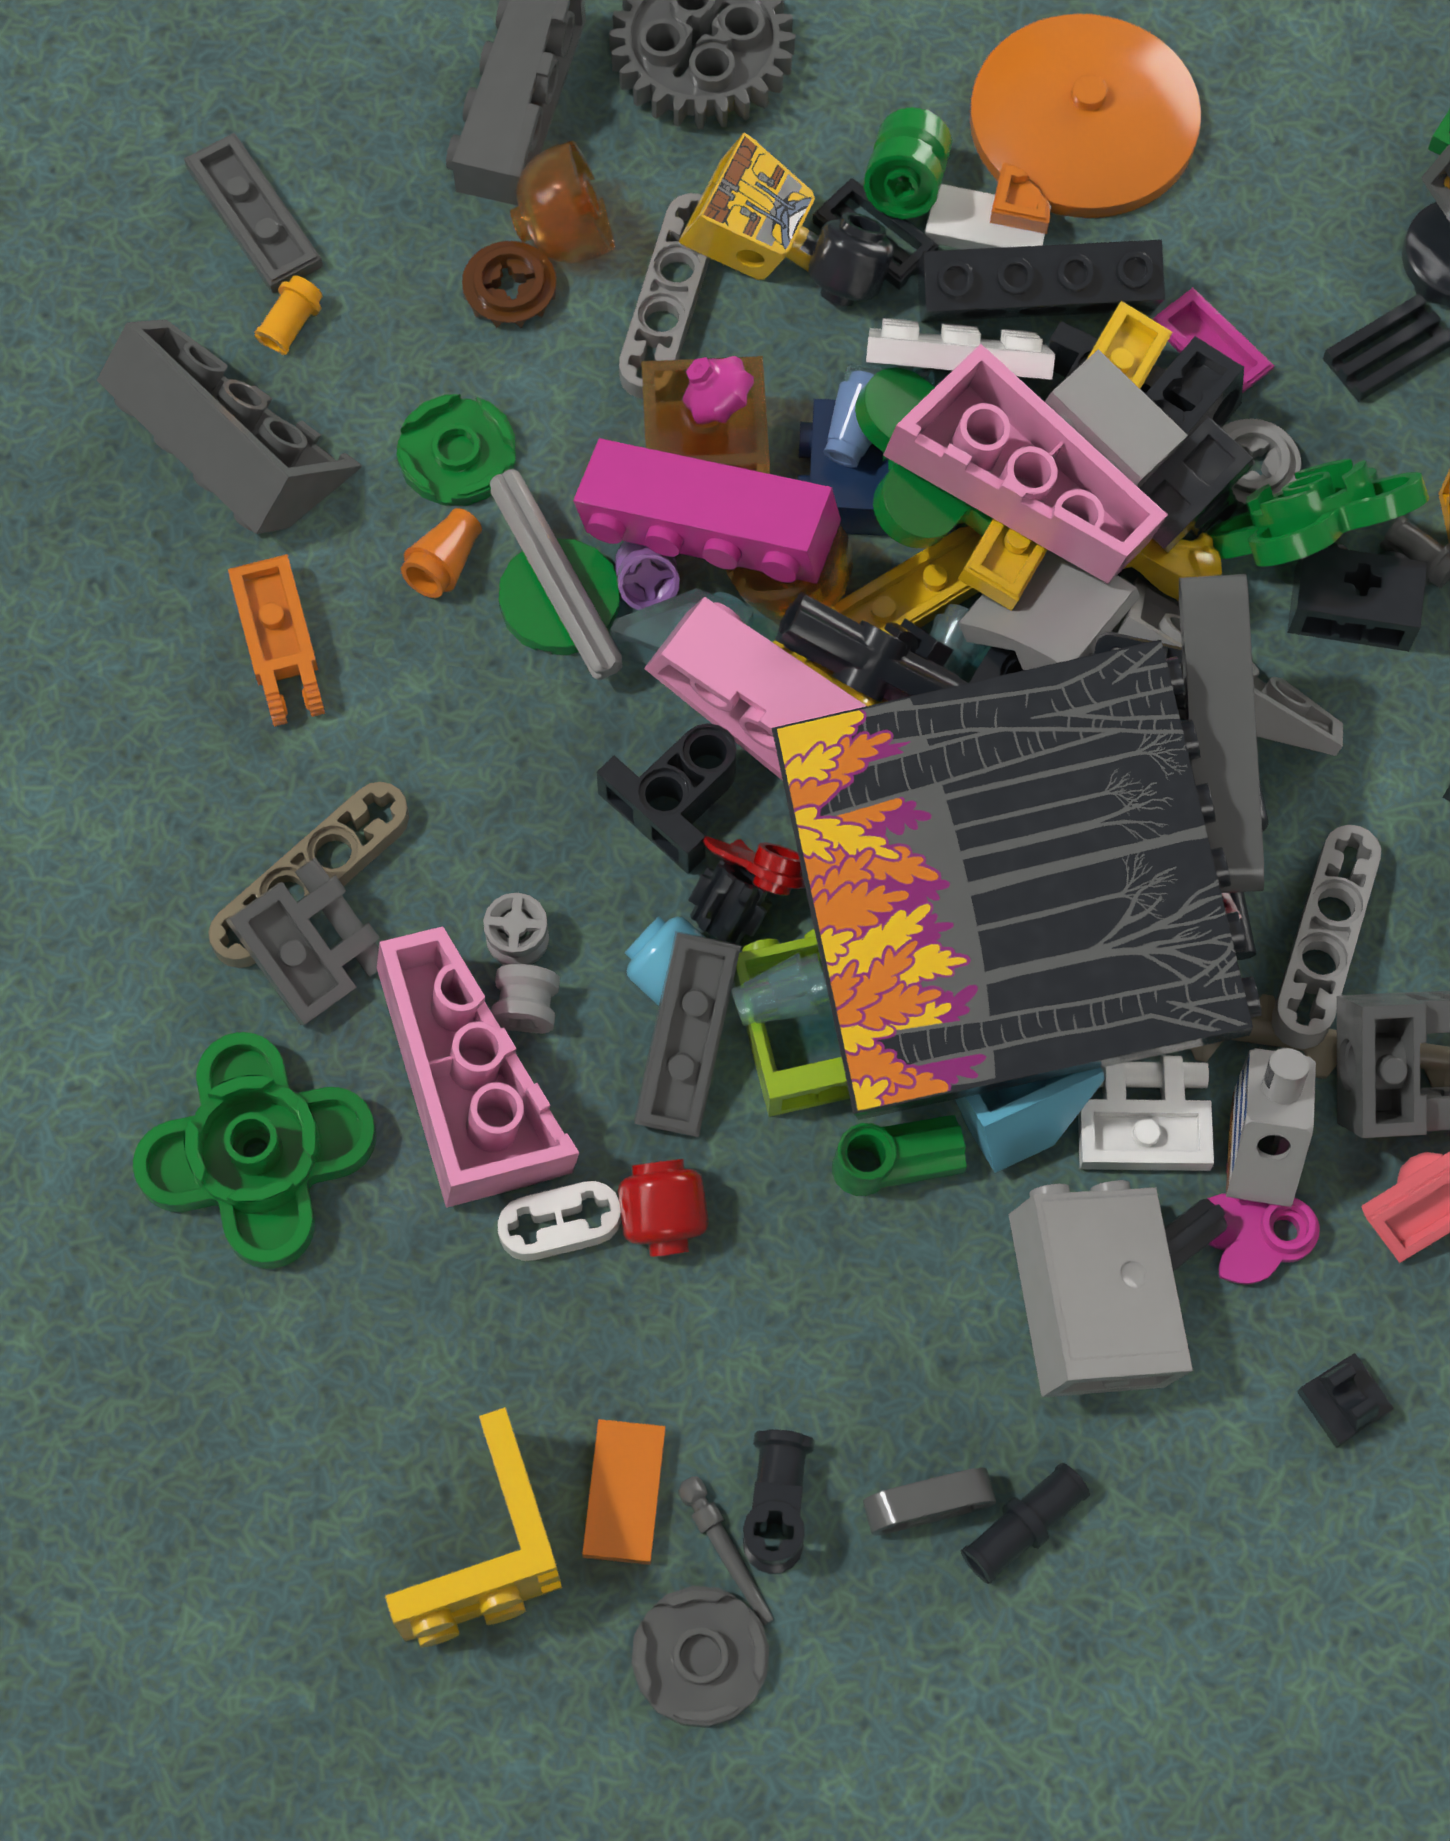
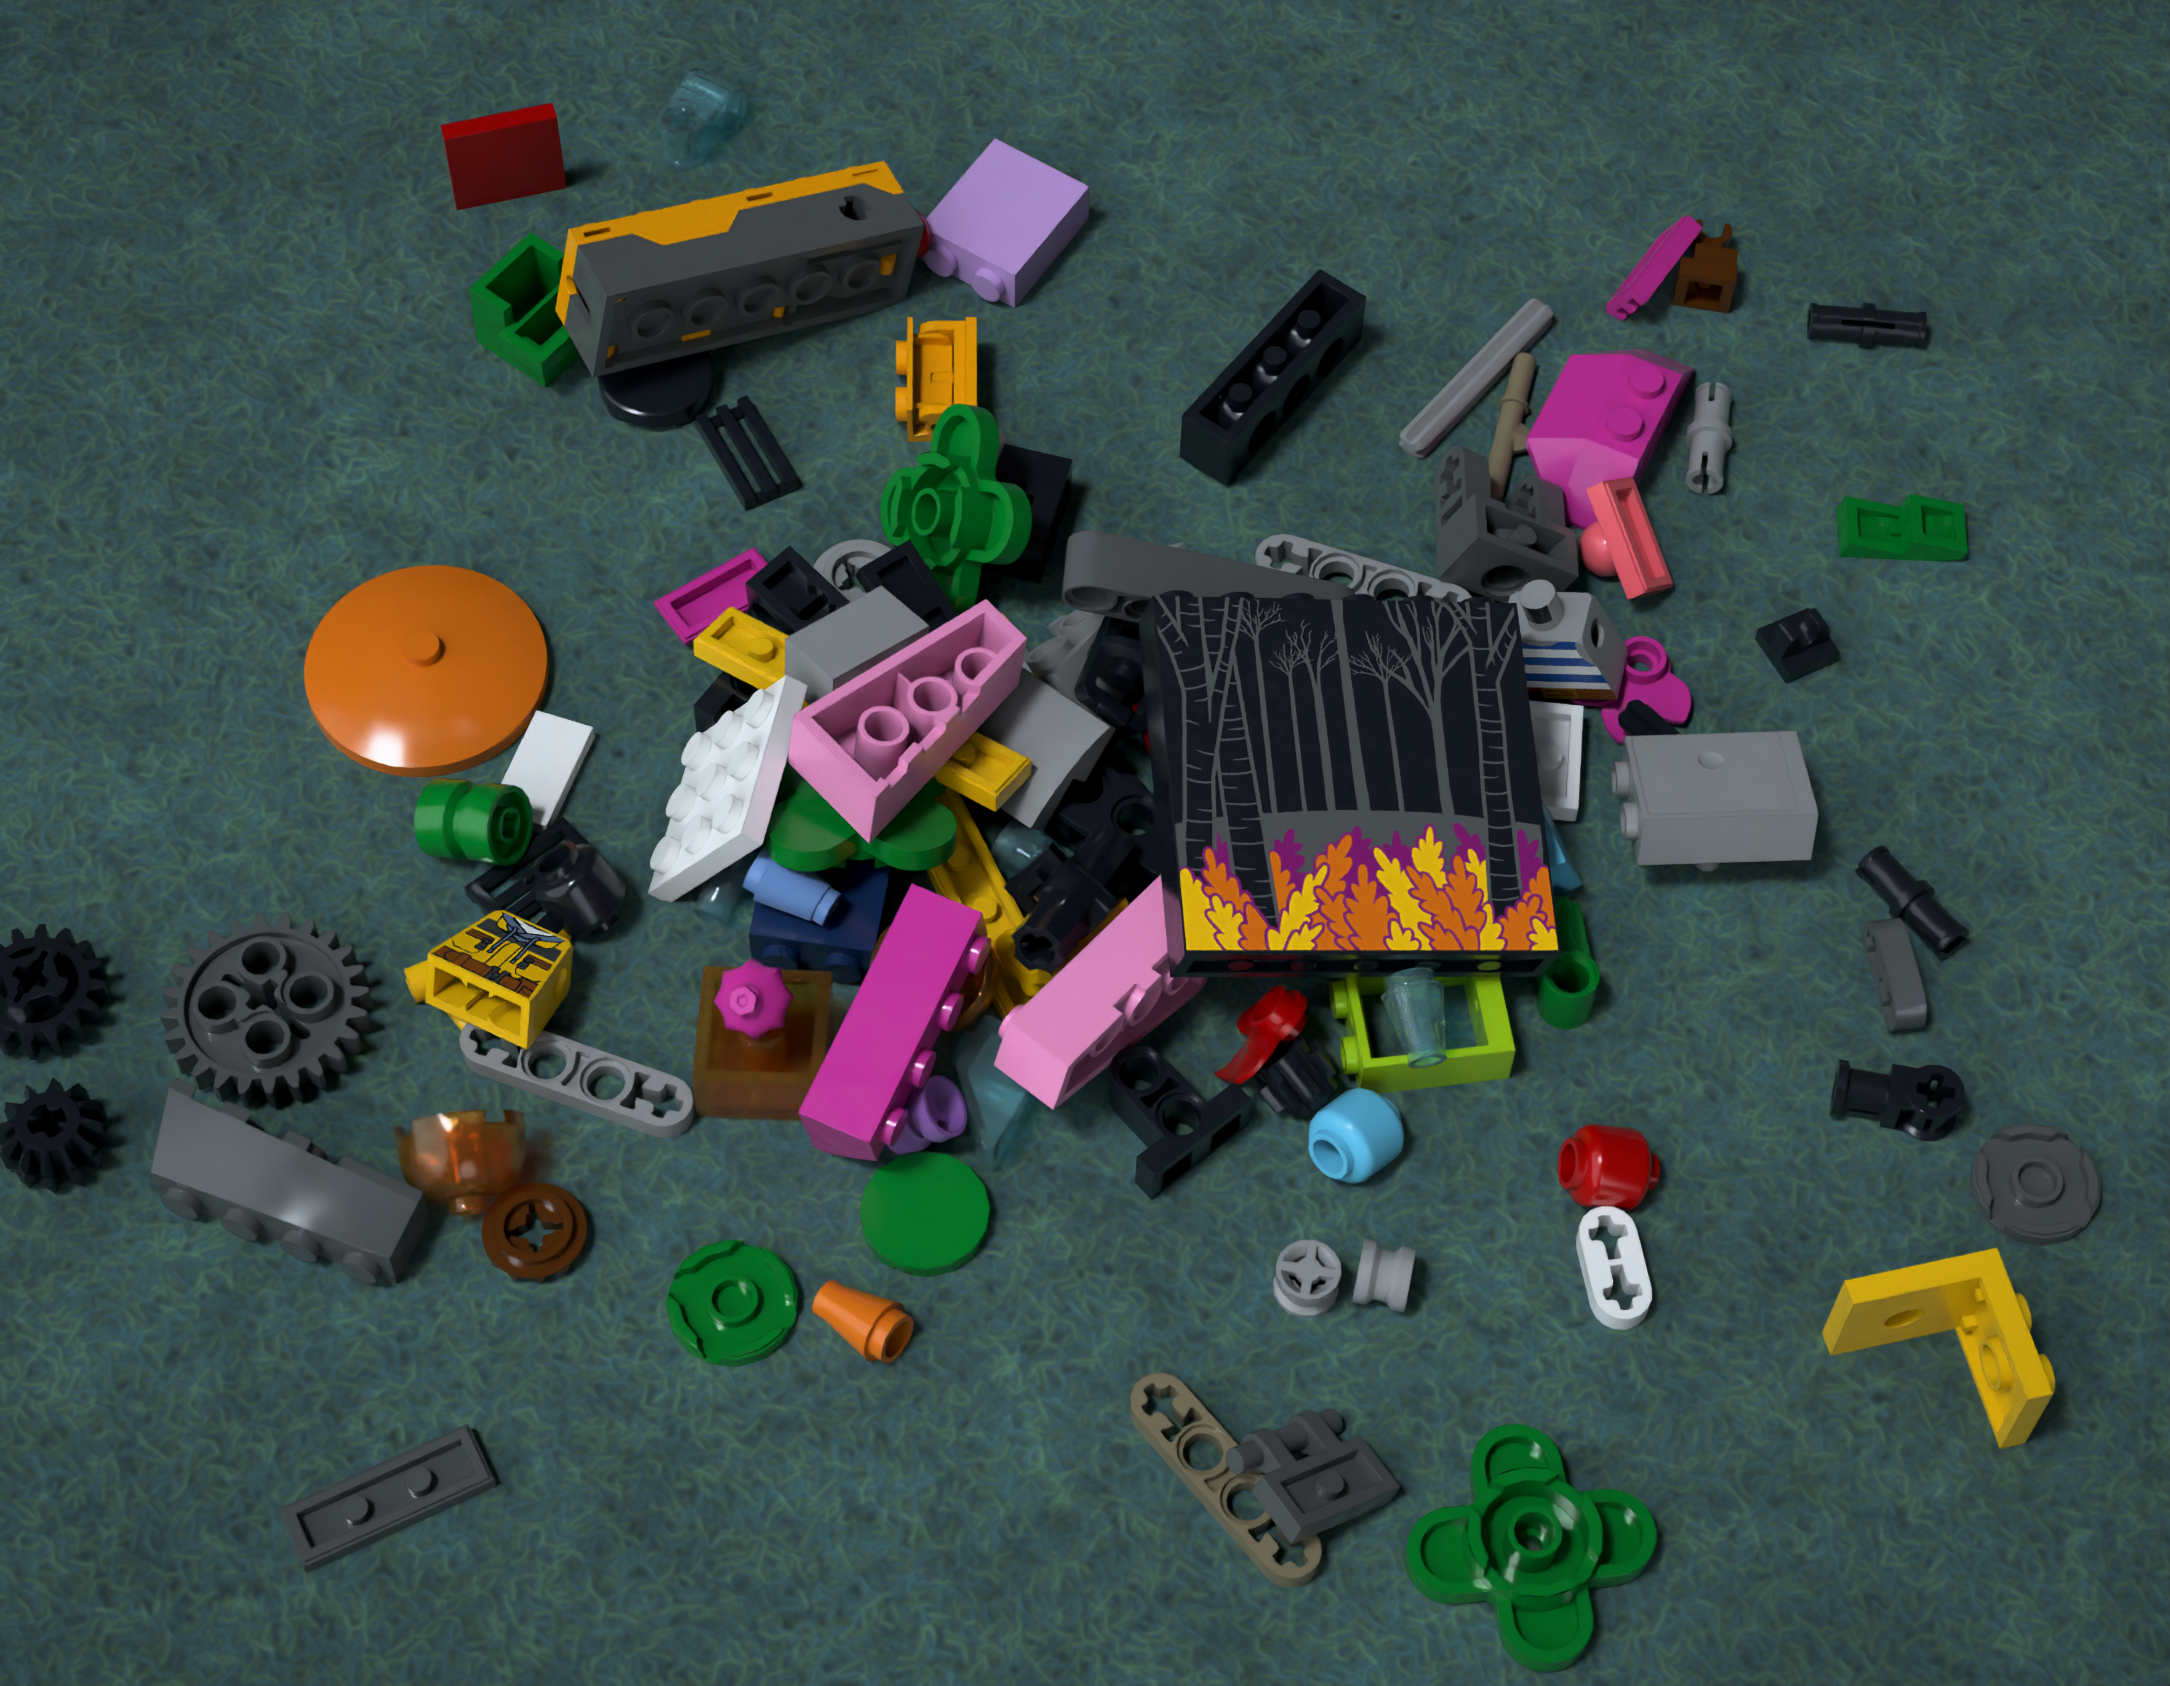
camera: 85 degrees left, 10 degrees down
(220, 427) = (681, 1535): dark grey wedge -> none
(276, 632) = (941, 1494): orange hinge -> none
(288, 315) = (536, 1461): light orange pin -> none
(473, 1095) = (1470, 1330): bright pink wedge -> none
(556, 574) = (910, 1204): light grey axle -> none
(624, 1492) = (1878, 1231): orange tile -> none
(687, 1034) = (1438, 1122): dark grey tile -> none
(708, 1520) = (1909, 1164): dark grey piece -> none
(1019, 202) = (531, 733): orange tile -> none
(1040, 280) = (635, 724): black brick -> none

